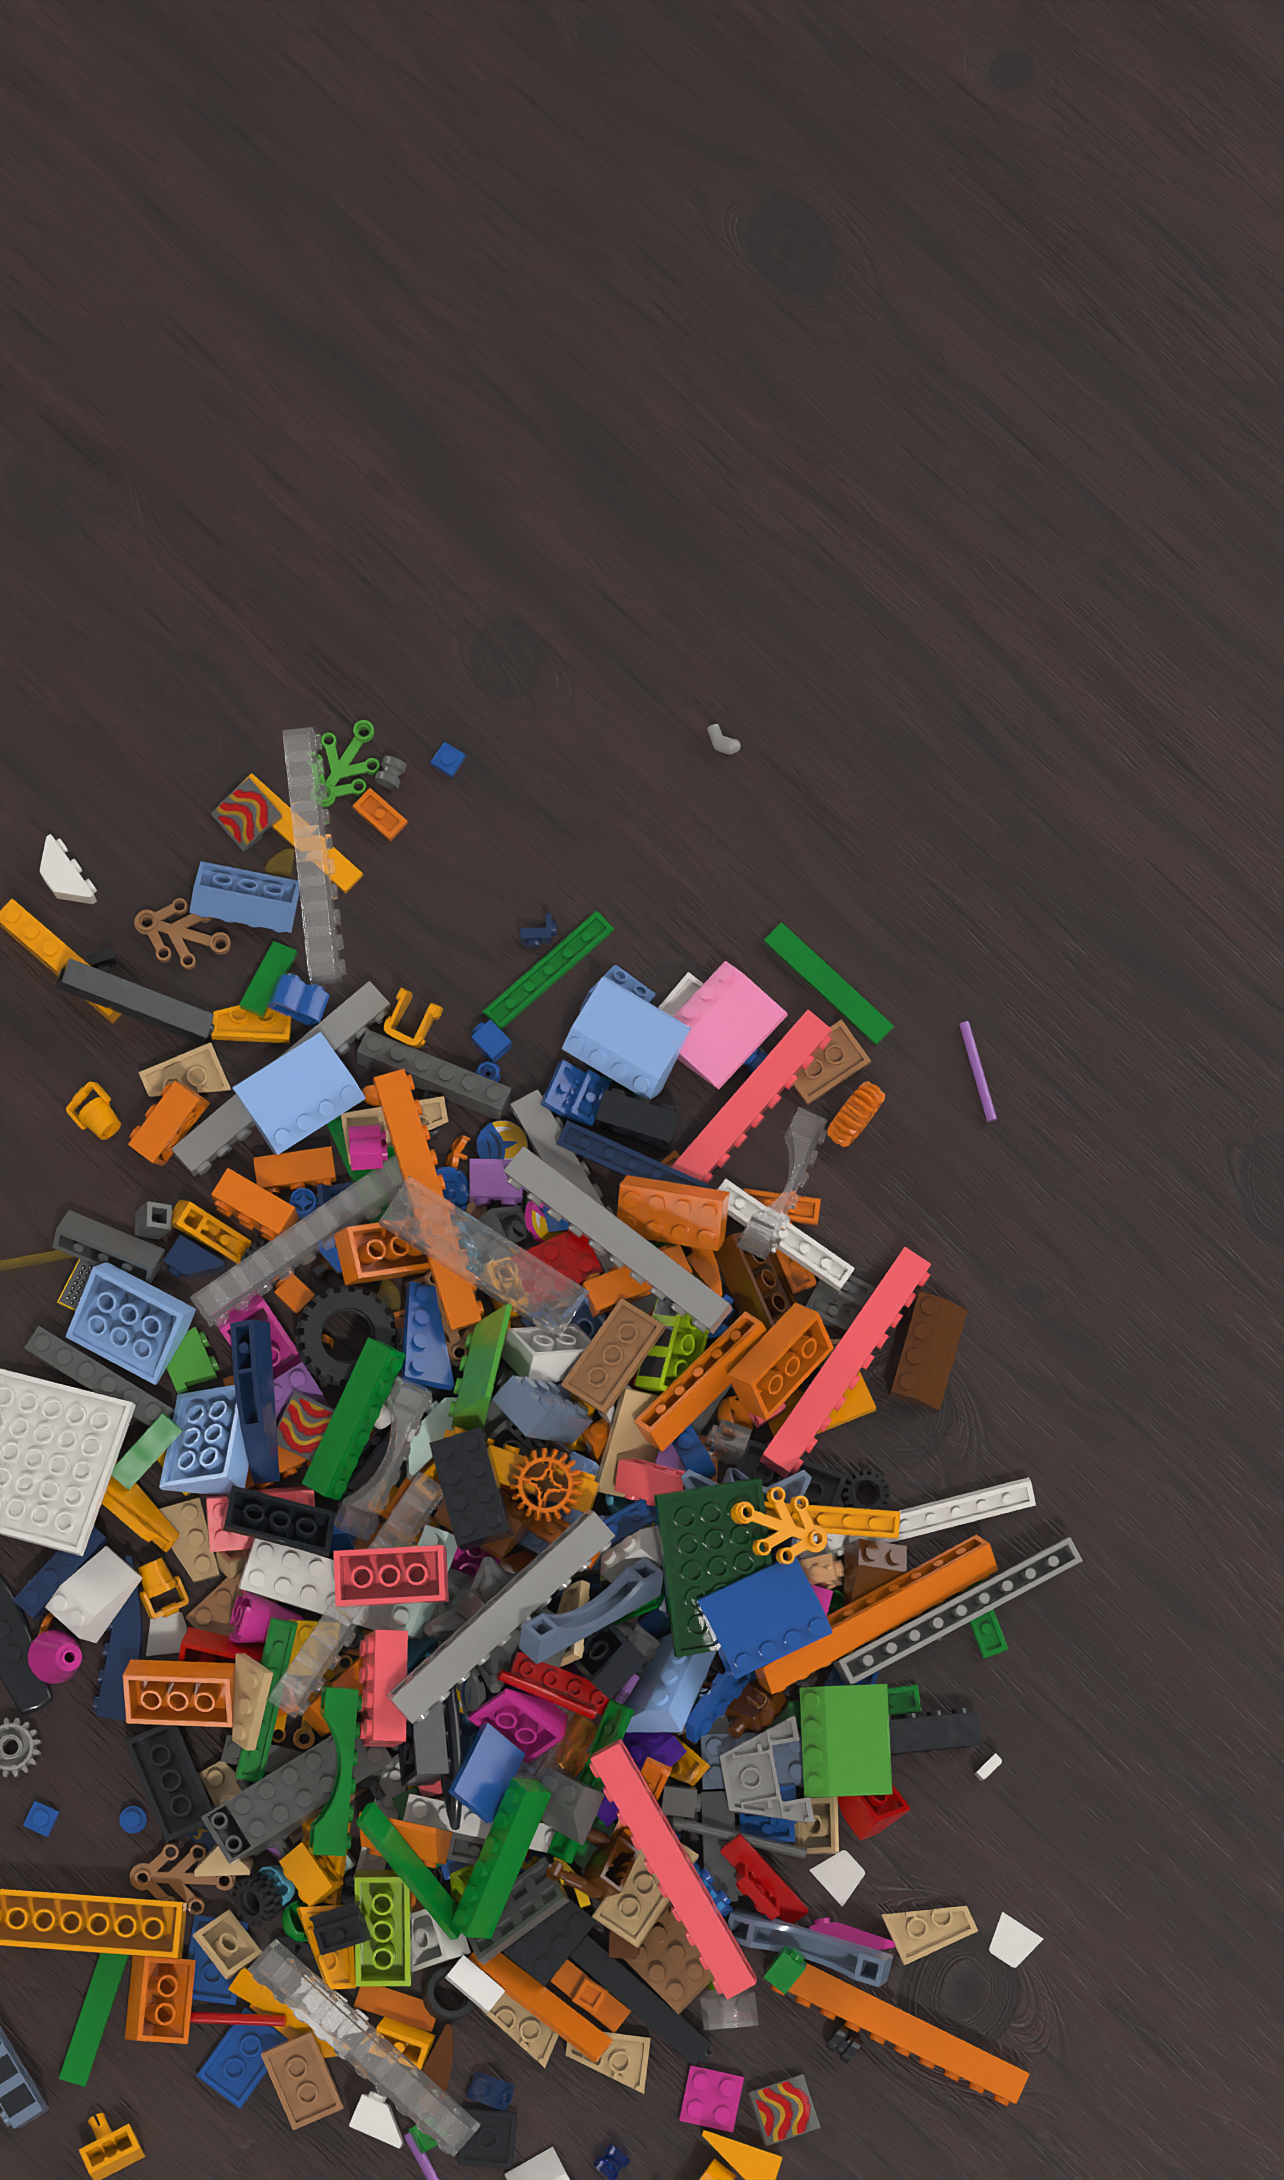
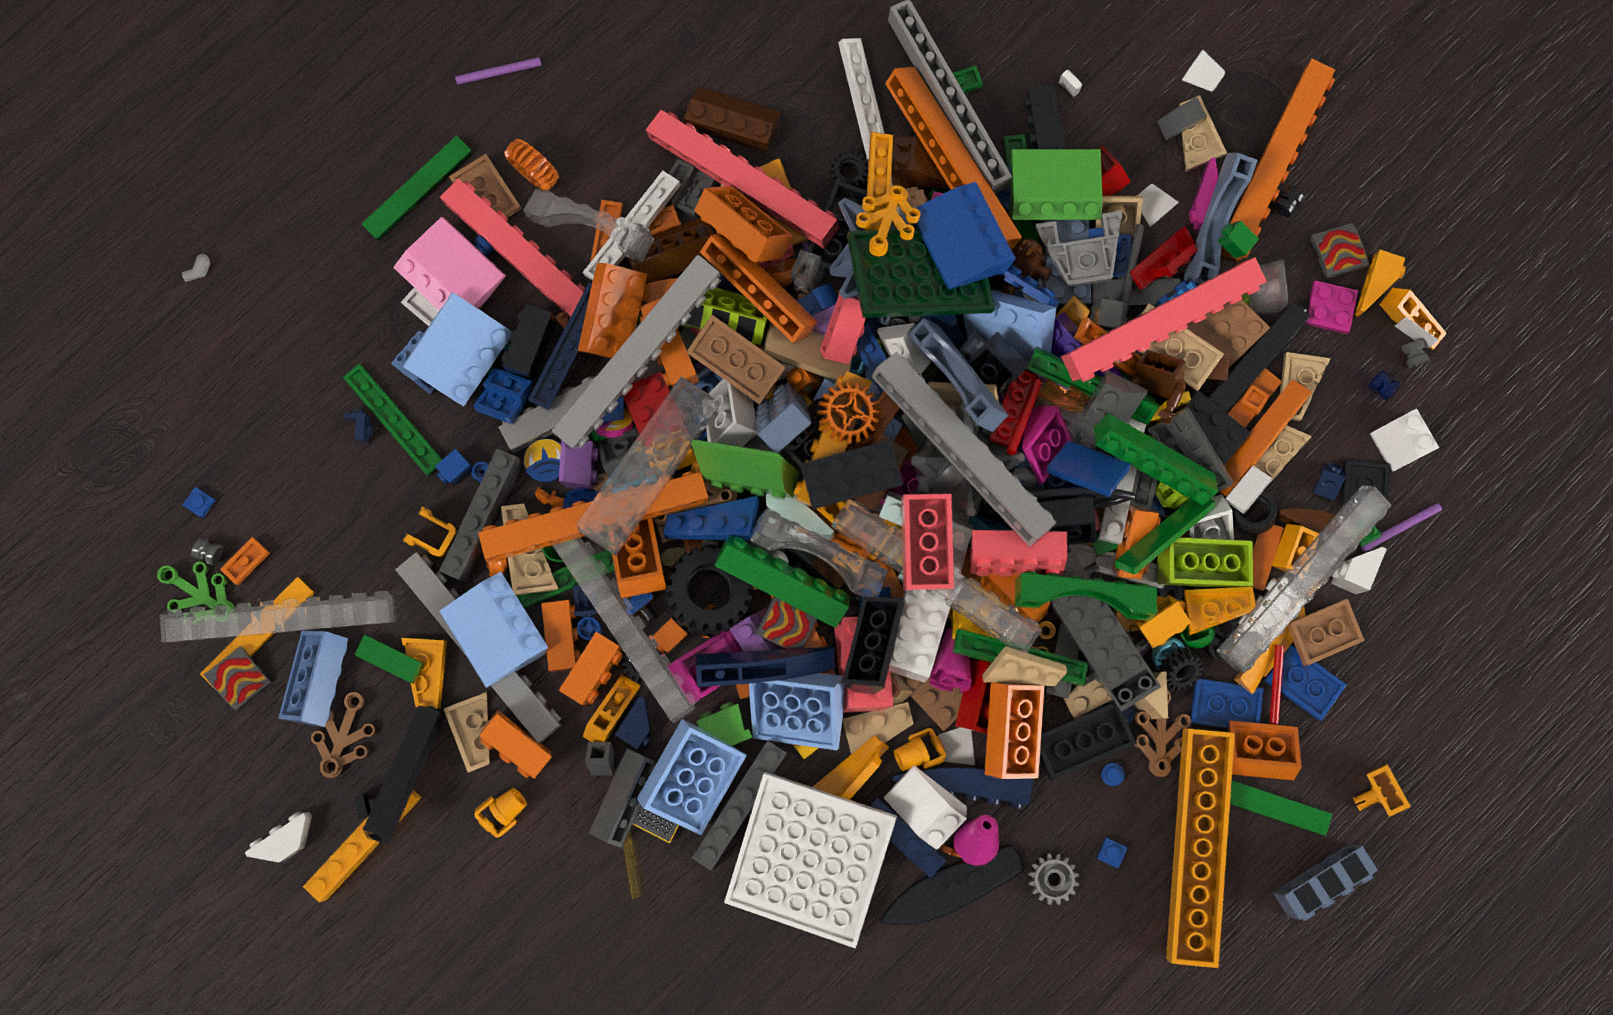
camera: 85 degrees left, 5 degrees up
(146, 1450) = (803, 762): tile -> none
(227, 1944) = (1218, 693): tan slope -> none
(281, 863) = (284, 648): clear yellow tile -> none
(299, 1000) = (409, 631): blue brick -> none
(340, 1928) = (1210, 595): black plate -> none
(367, 1147) = (544, 569): dark pink brick -> none
(944, 1906) = (1181, 118): none -> dark grey slope

